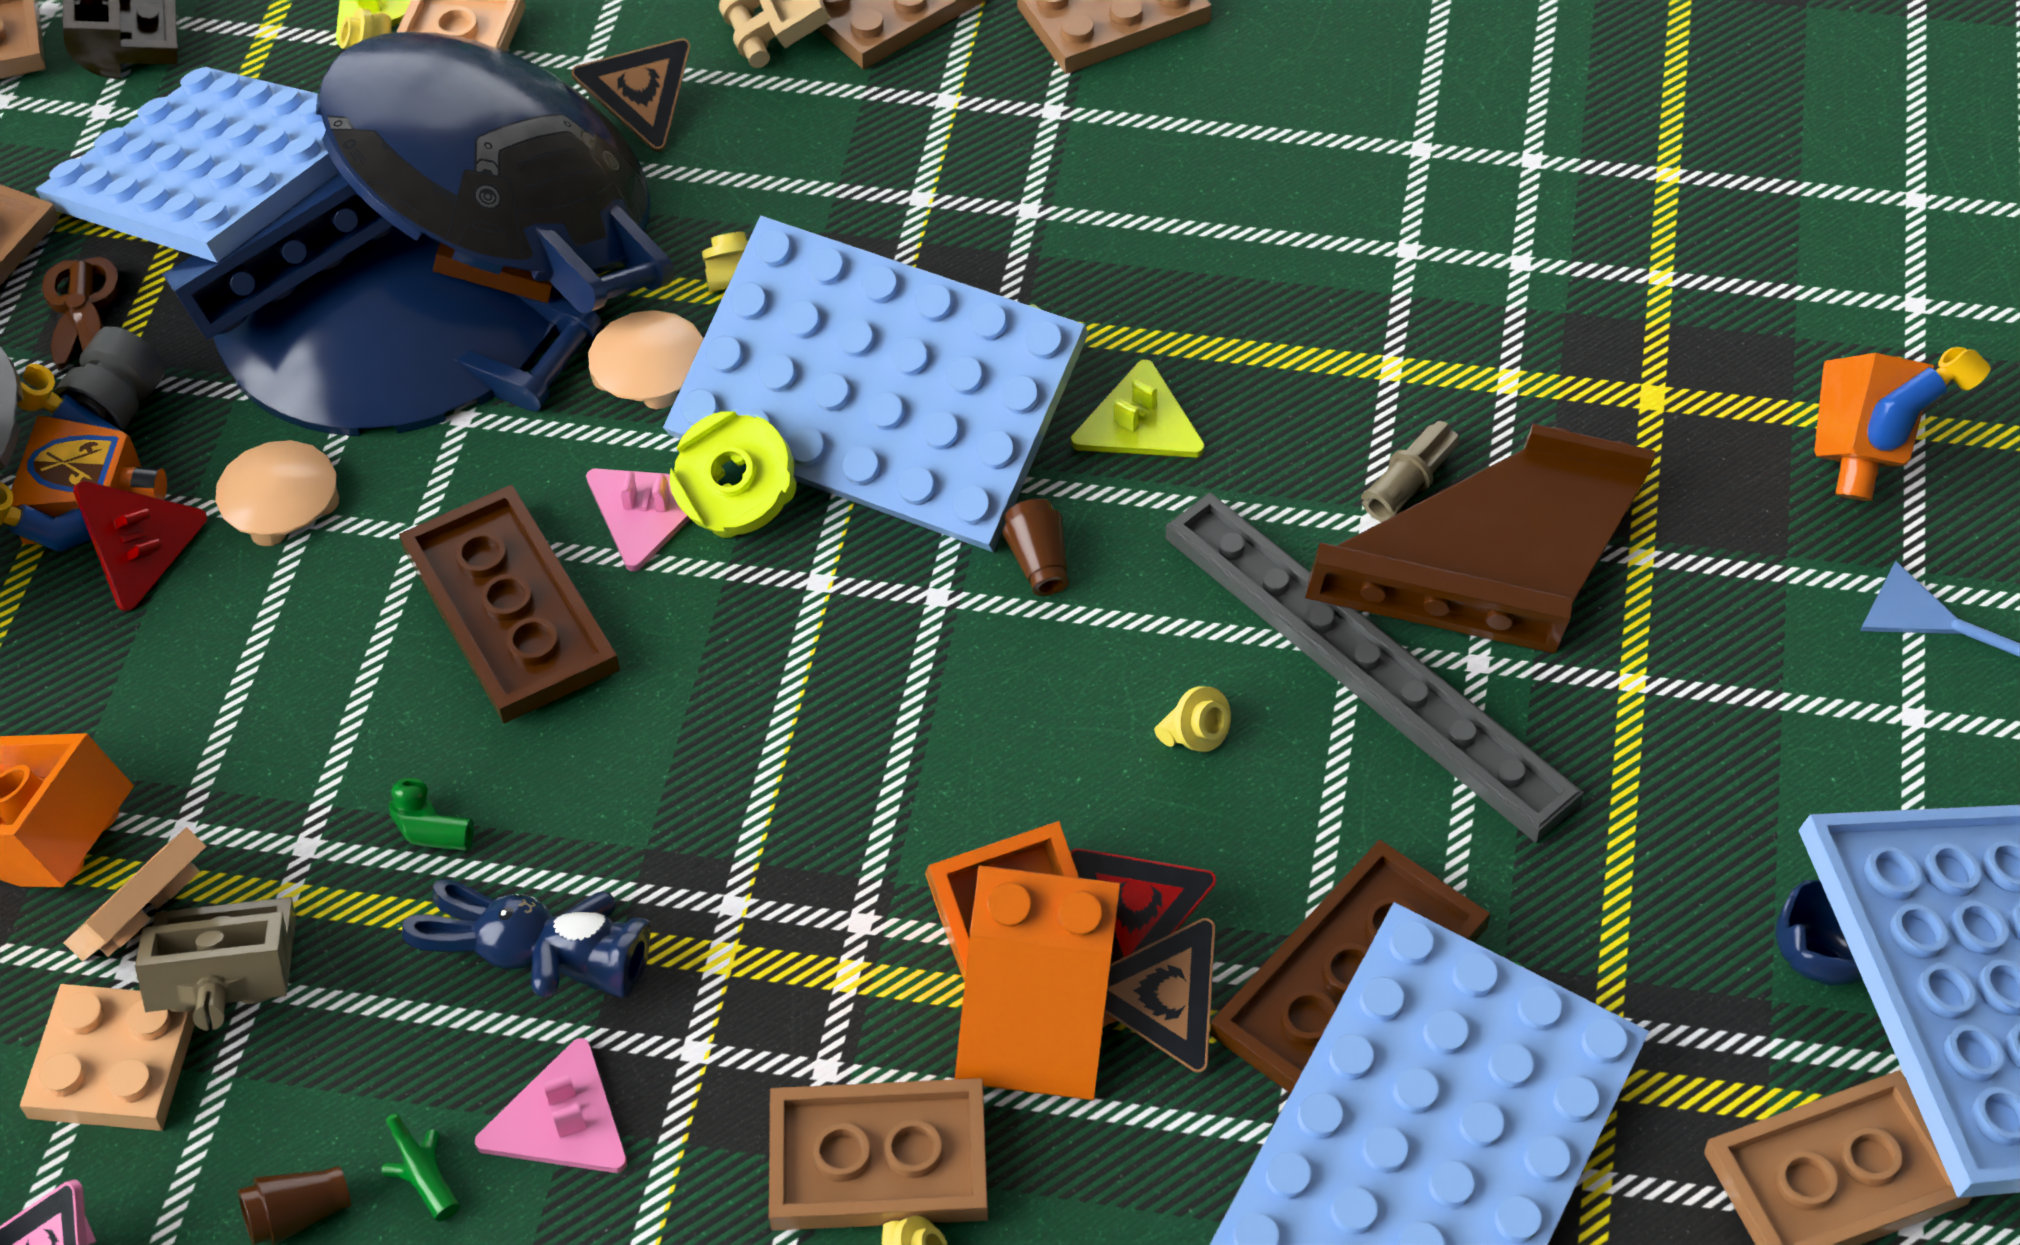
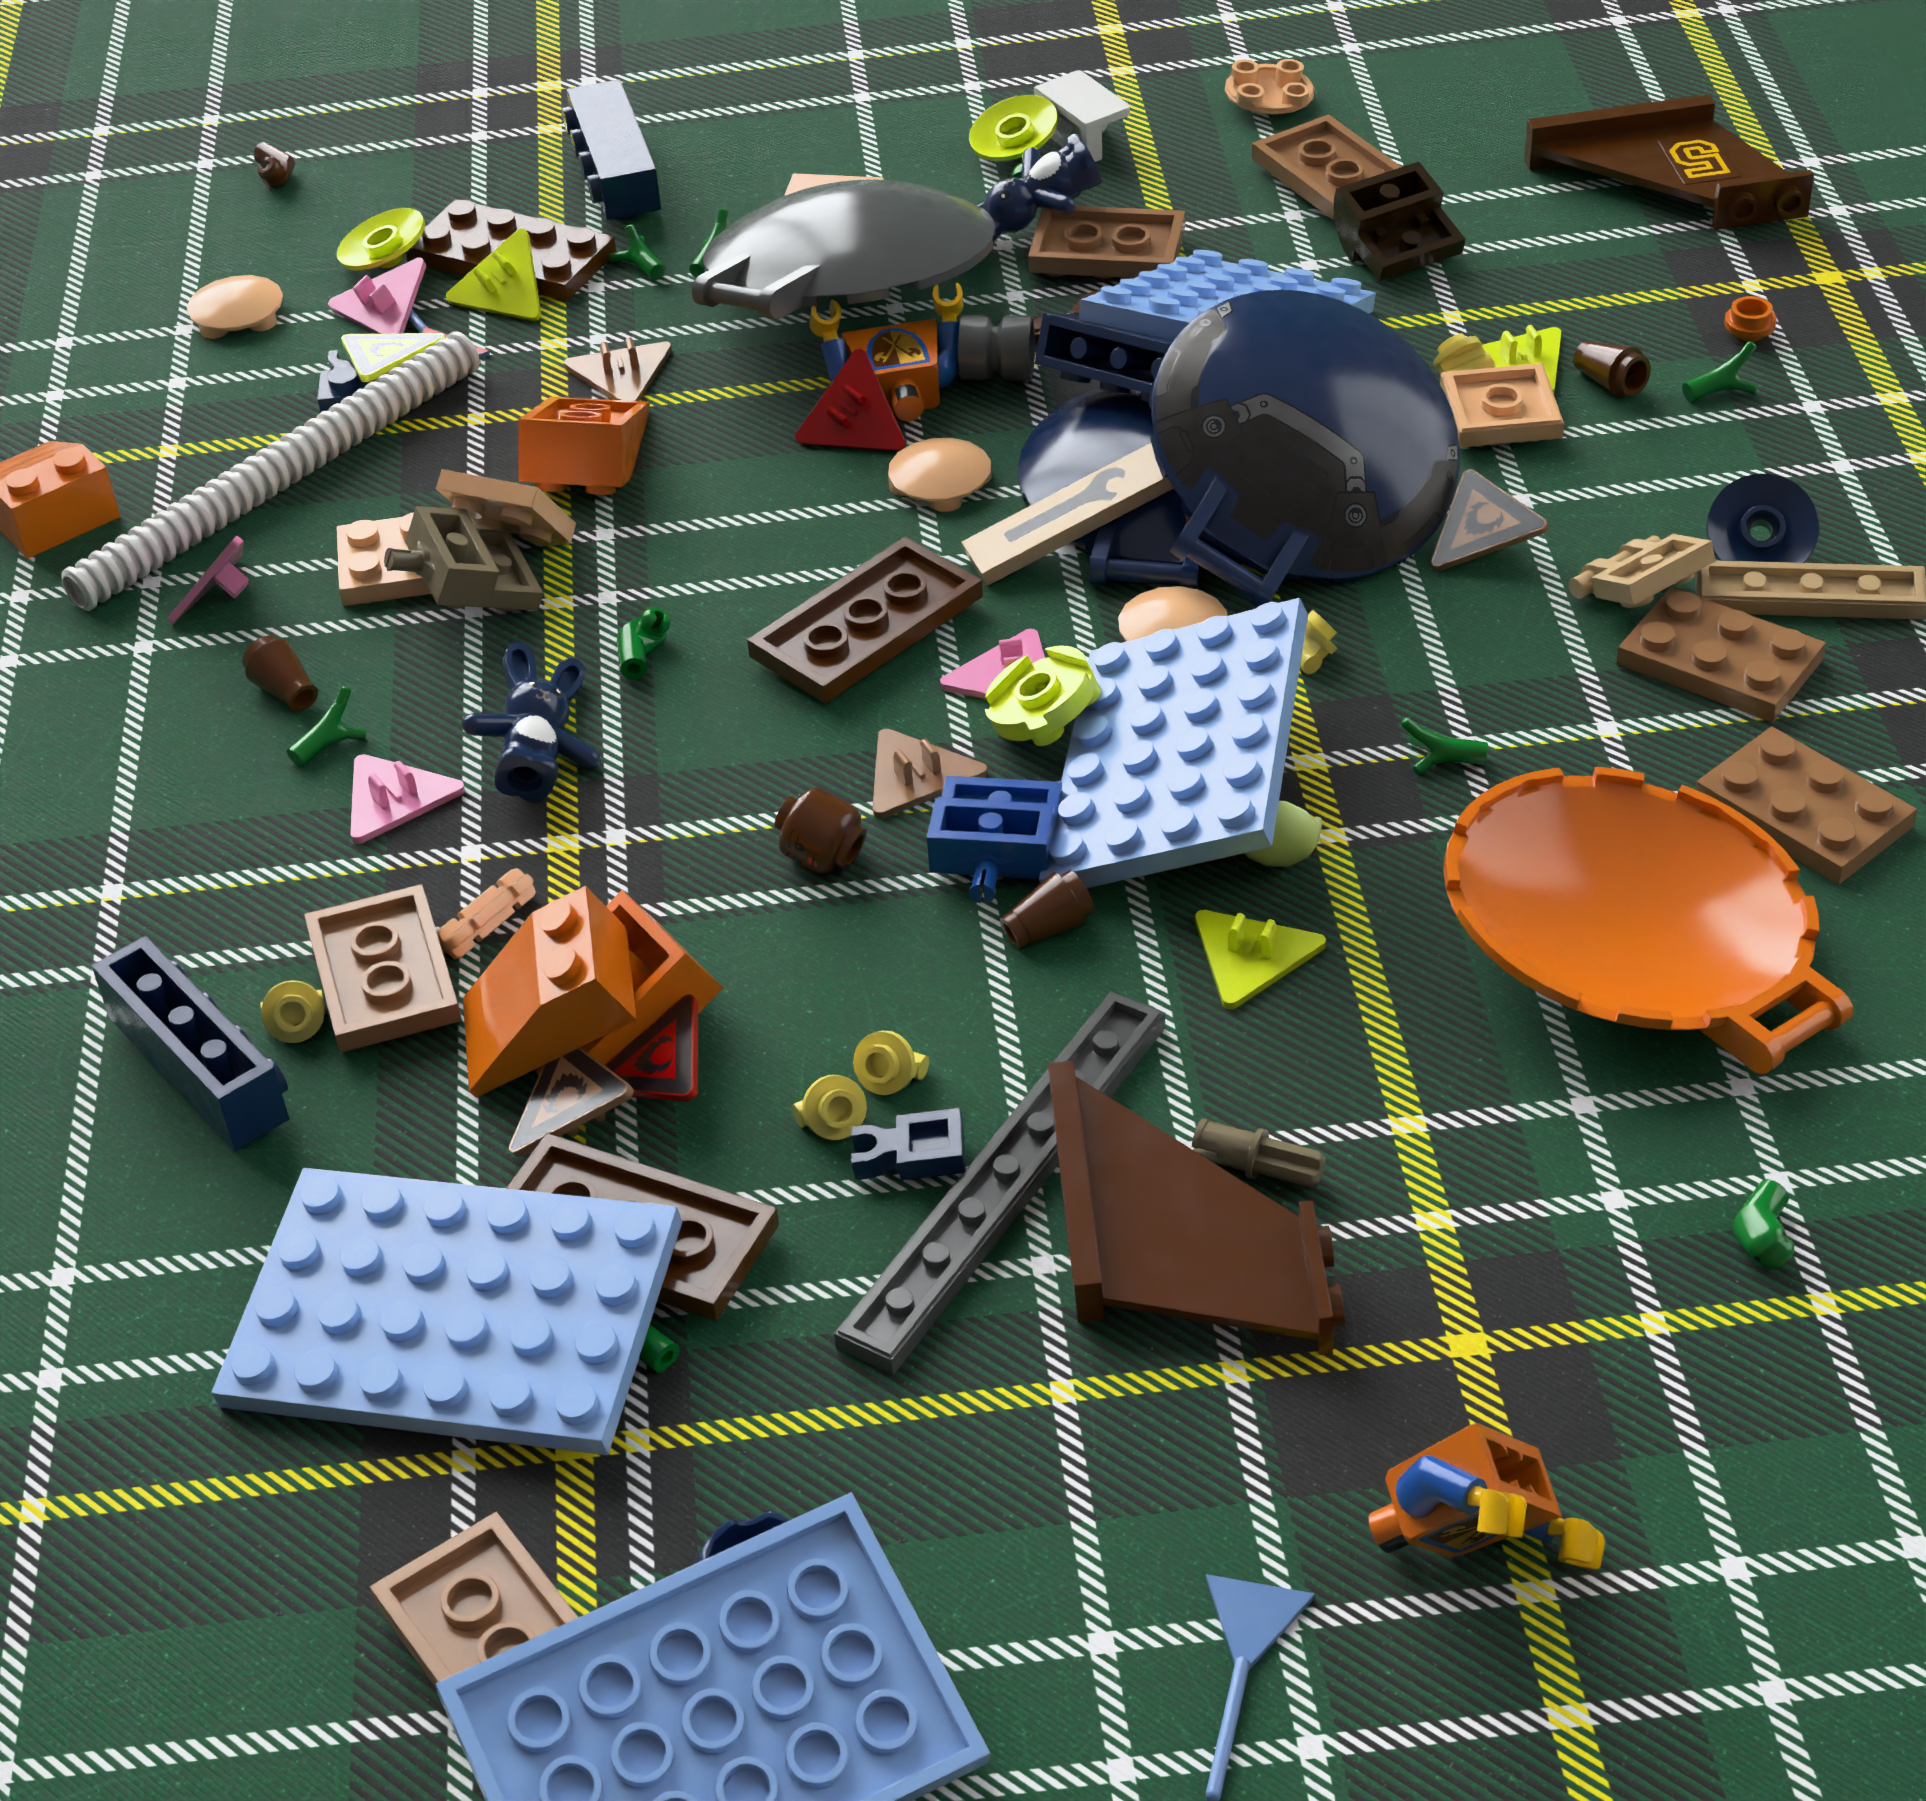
camera: 75 degrees right, 10 degrees down
(452, 387) = (1066, 515): none -> tile
(760, 619) = (914, 772): none -> medium nougat piece
(820, 1037) = (486, 913): none -> light nougat axle
(847, 703) = (820, 831): none -> reddish brown head
(905, 560) = (993, 830): none -> blue plate
(935, 209) = (1443, 748): none -> green bar
(1235, 127) = (1642, 908): none -> orange dish
(1241, 777) = (831, 1107): none -> light yellow plate
(1320, 713) = (918, 1146): none -> dark blue plate
(1591, 181) = (1758, 1226): none -> green arm

